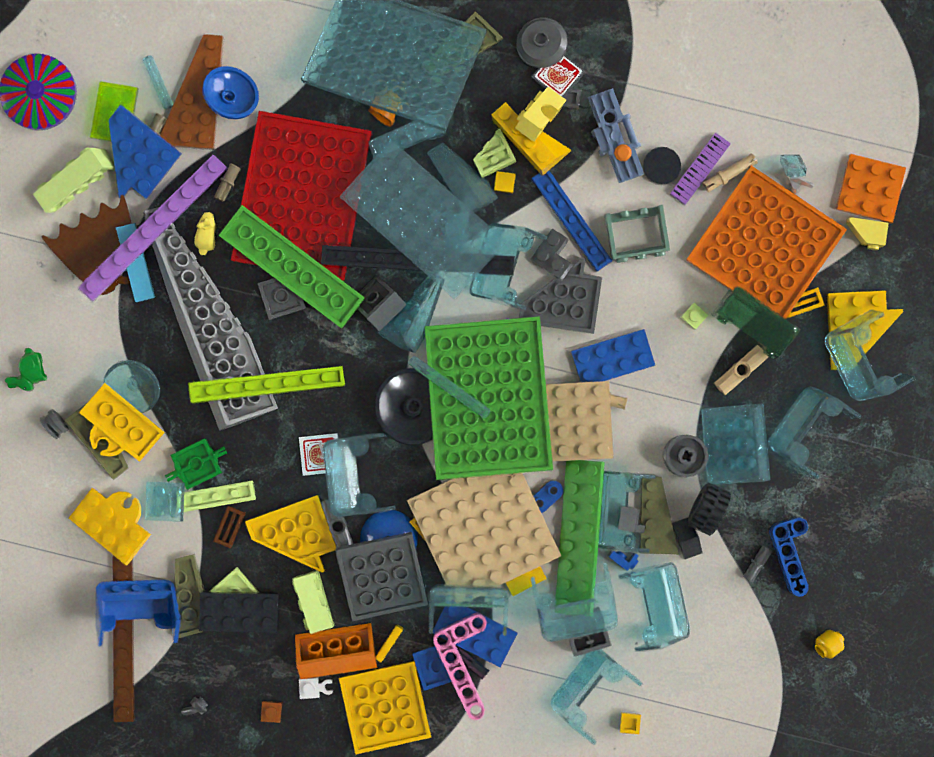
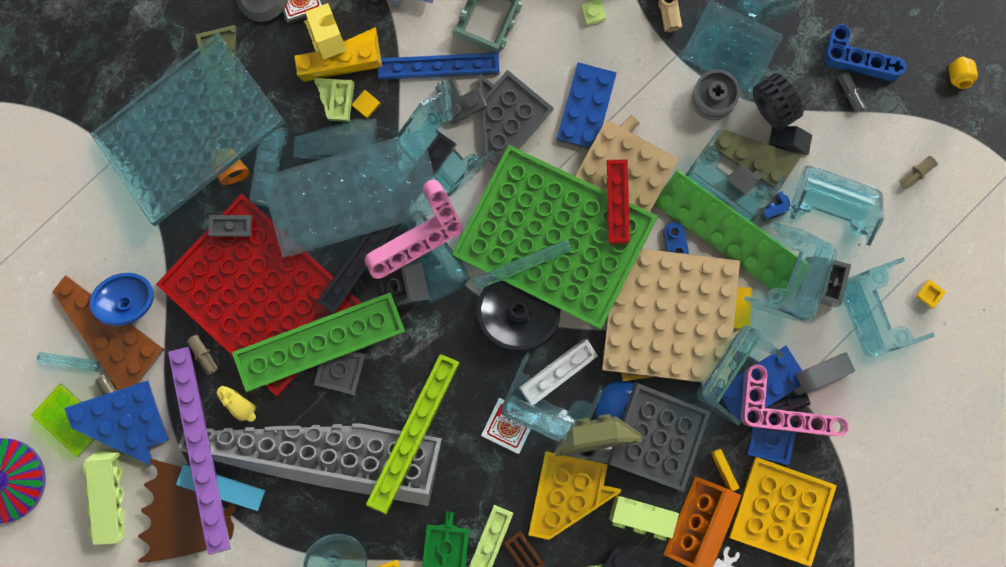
camera: 55 degrees left, 5 degrees down
(339, 139) = (230, 226): none -> dark grey plate
(351, 527) = (597, 434): none -> olive wedge
(385, 467) = (558, 372): none -> white plate
(417, 294) = (420, 239): none -> bright pink beam
(514, 676) = (825, 372): none -> dark grey beam
(543, 245) = (445, 101): none -> clear light blue axle
(545, 431) = (618, 202): none -> red tile
(724, 656) = (918, 172): none -> dark tan axle

